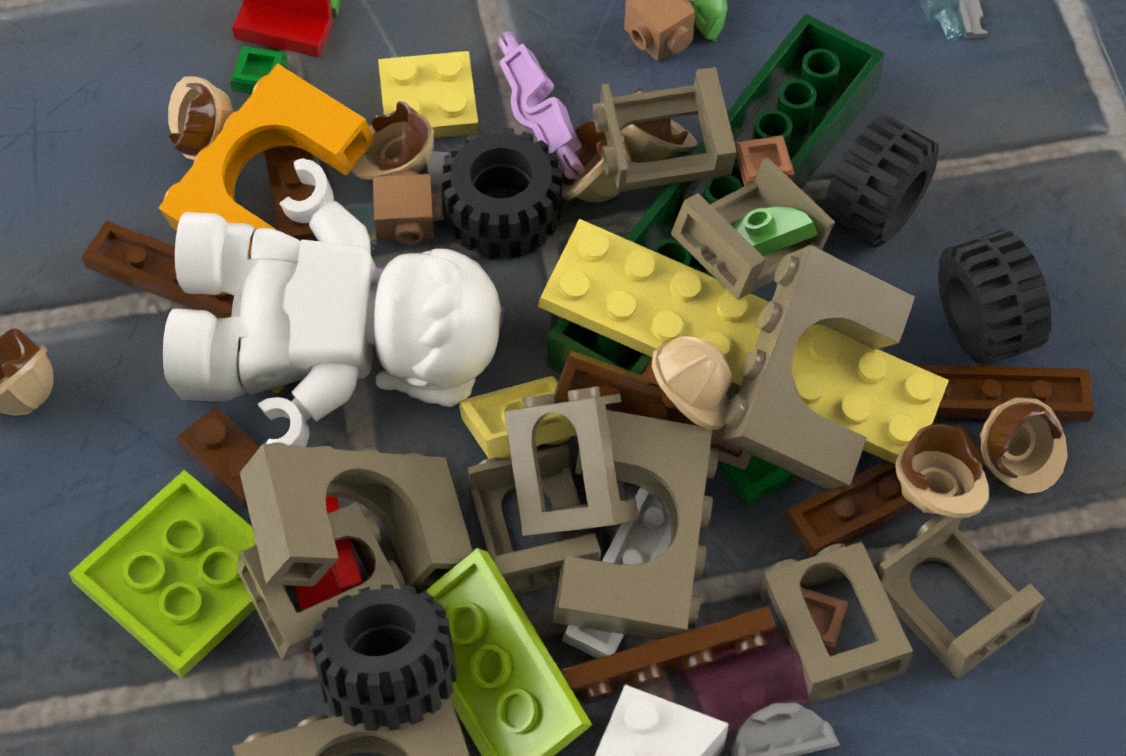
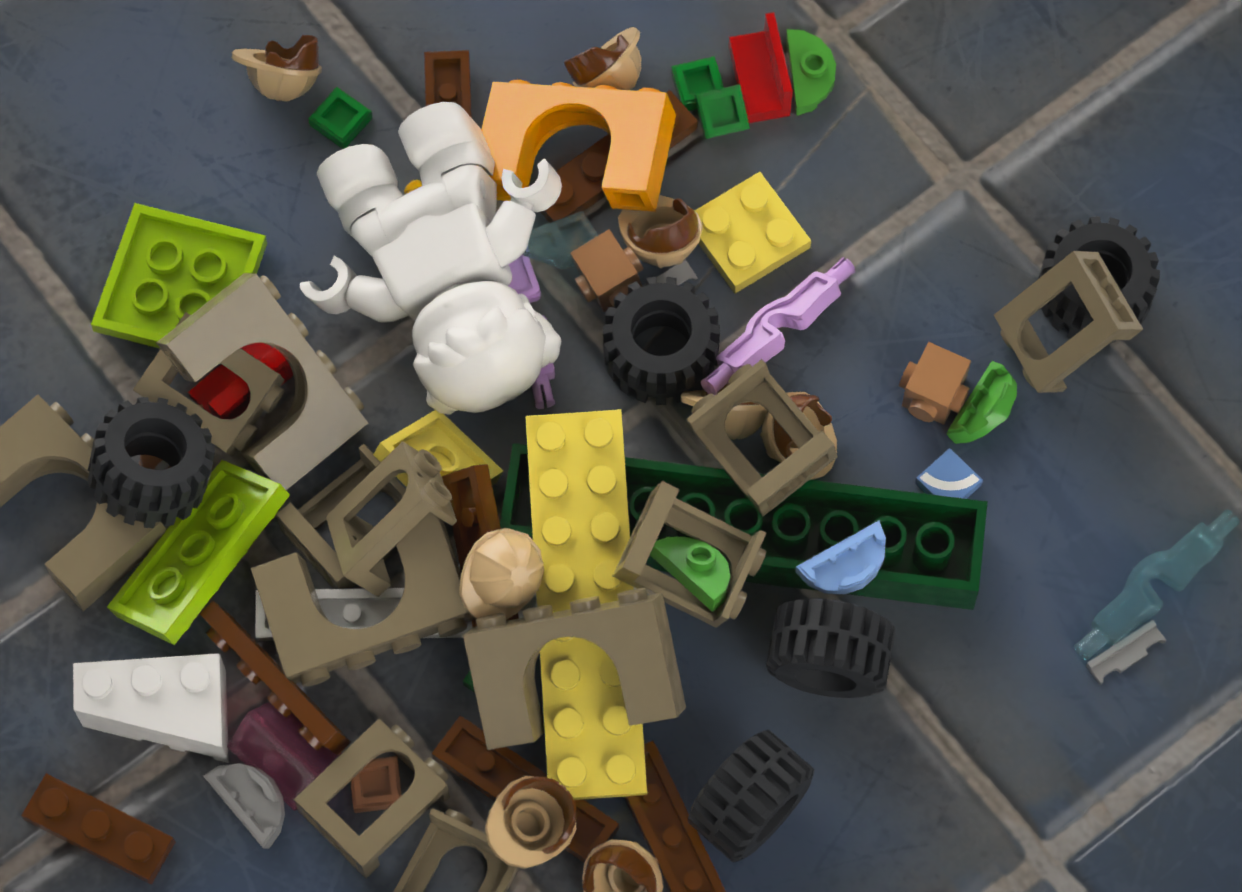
camera: 65 degrees right, 10 degrees up
(95, 362) = (340, 118): none -> green tile
(220, 450) = (305, 259): reddish brown plate -> none
(303, 58) = (722, 111): none -> green tile
(747, 53) = (949, 477): none -> medium blue tile
(752, 152) = (786, 538): nougat tile -> none
(817, 124) = (847, 564): none -> light blue plate

